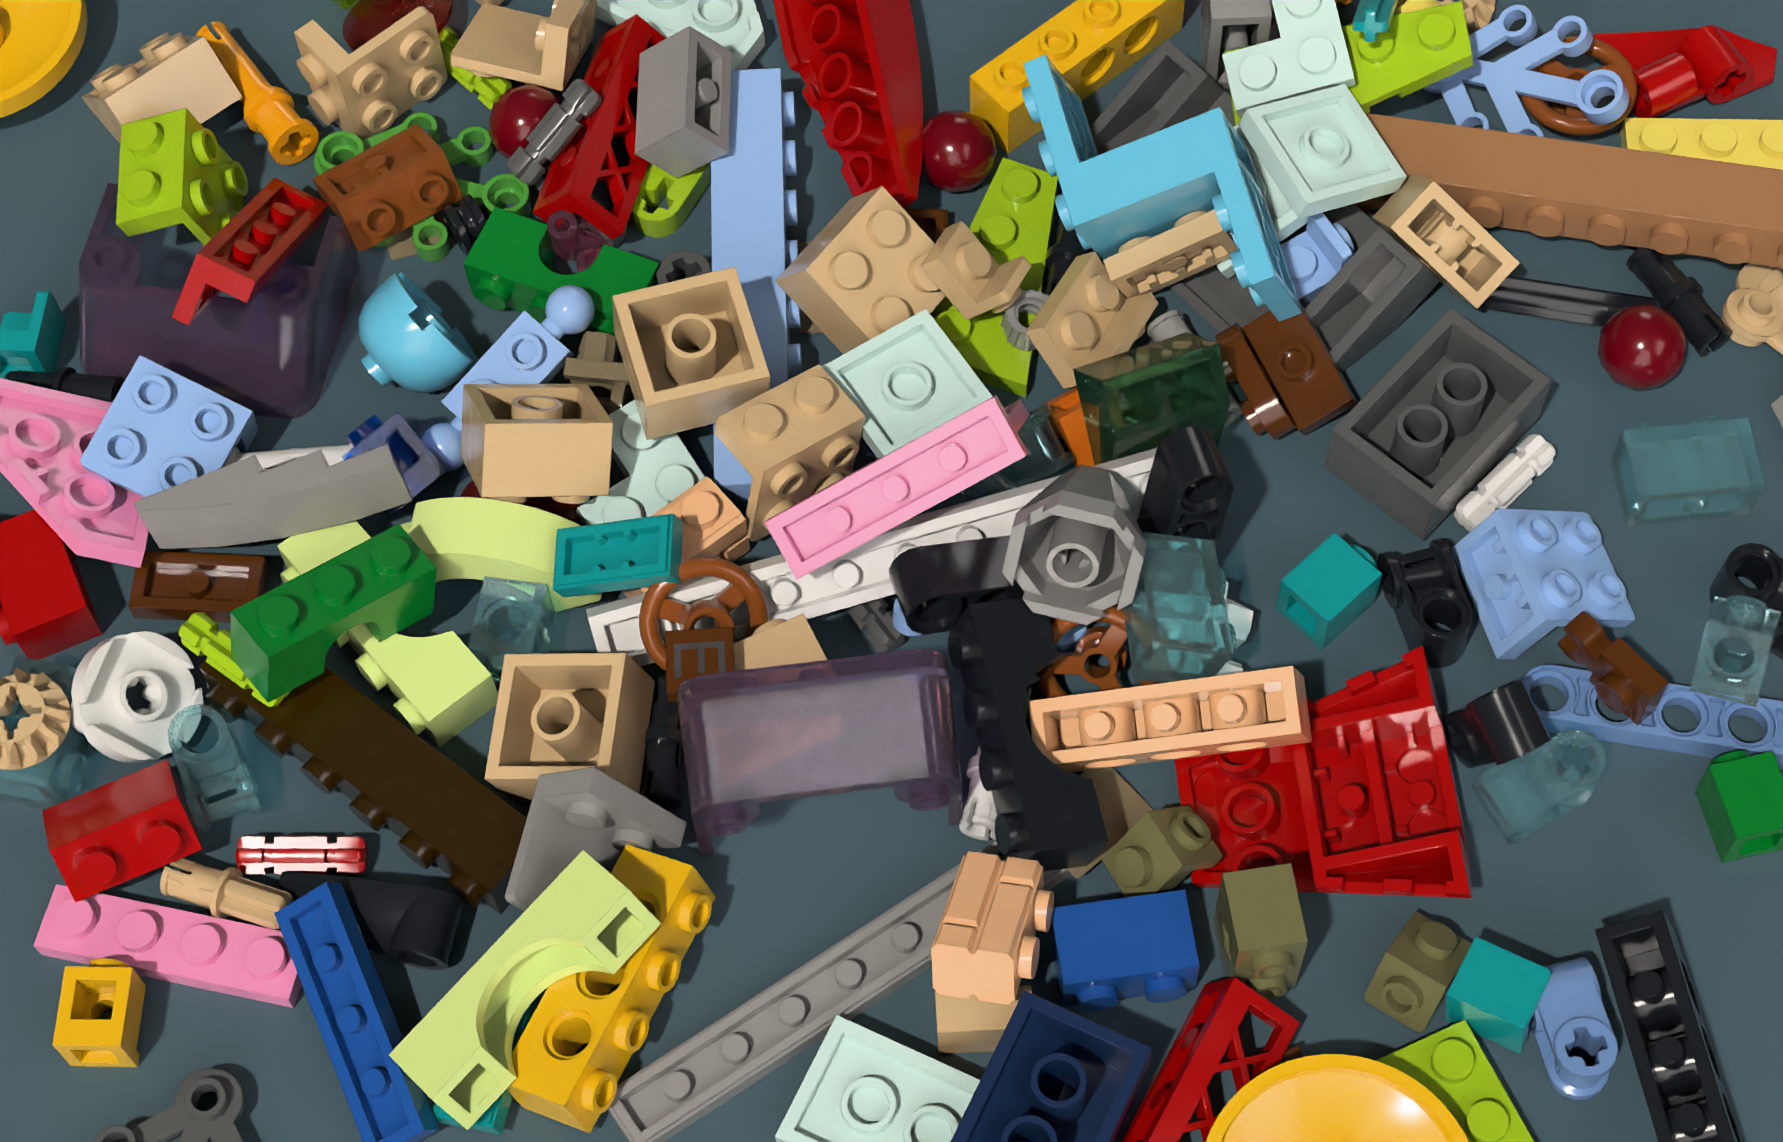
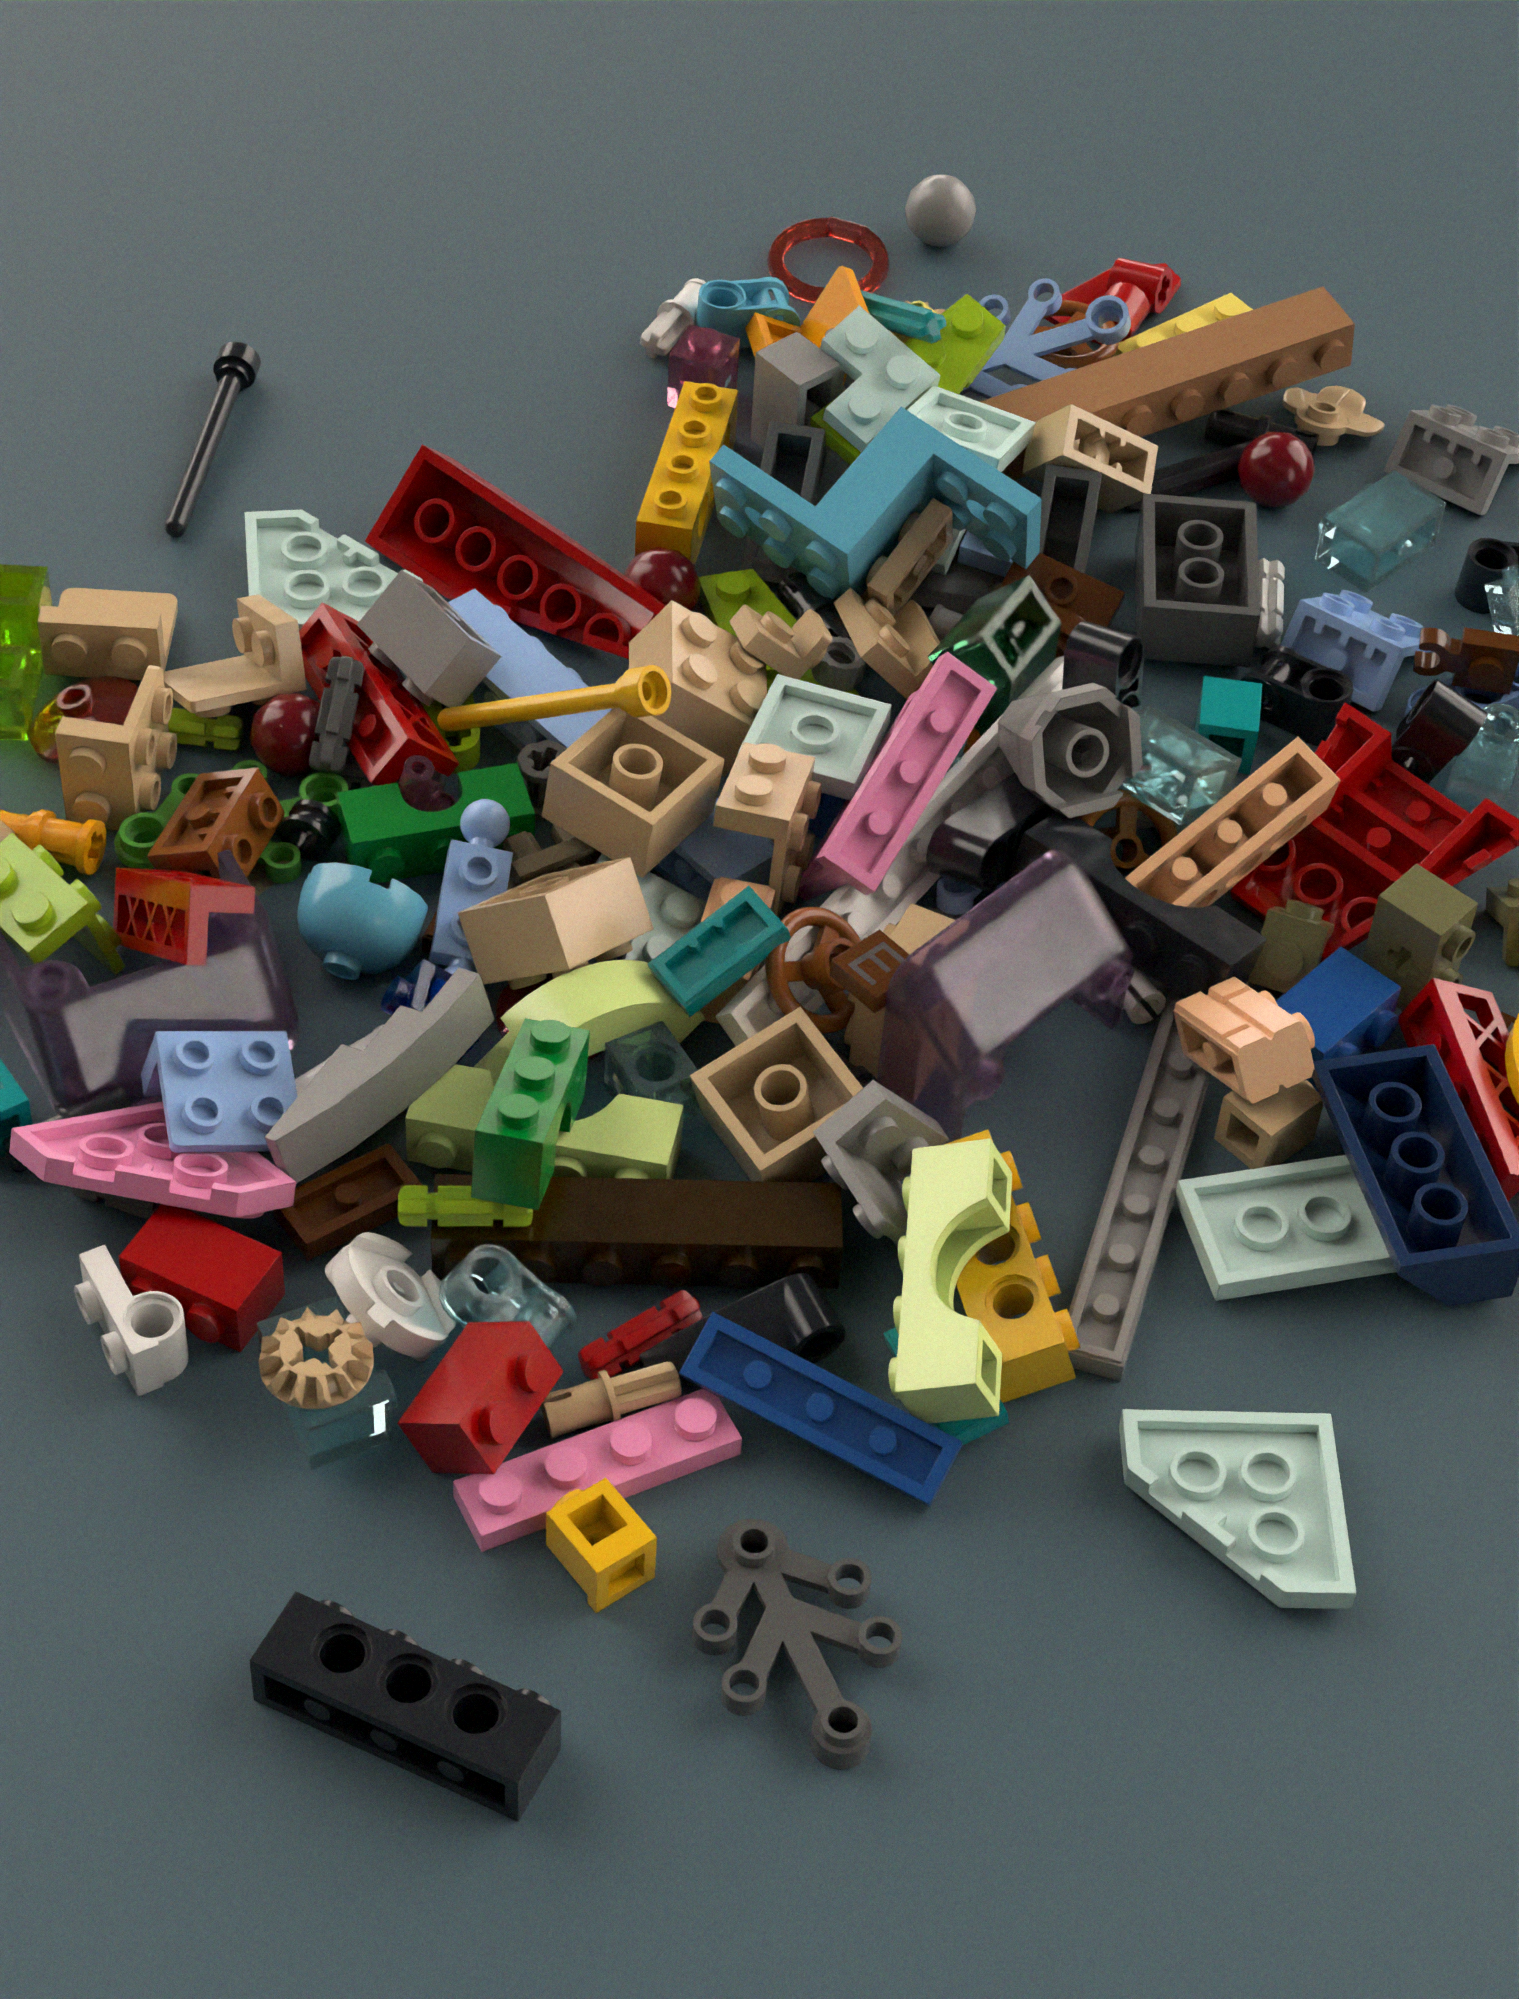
camera: 45 degrees left, 15 degrees down
(727, 270) = (638, 692): none -> yellow piece

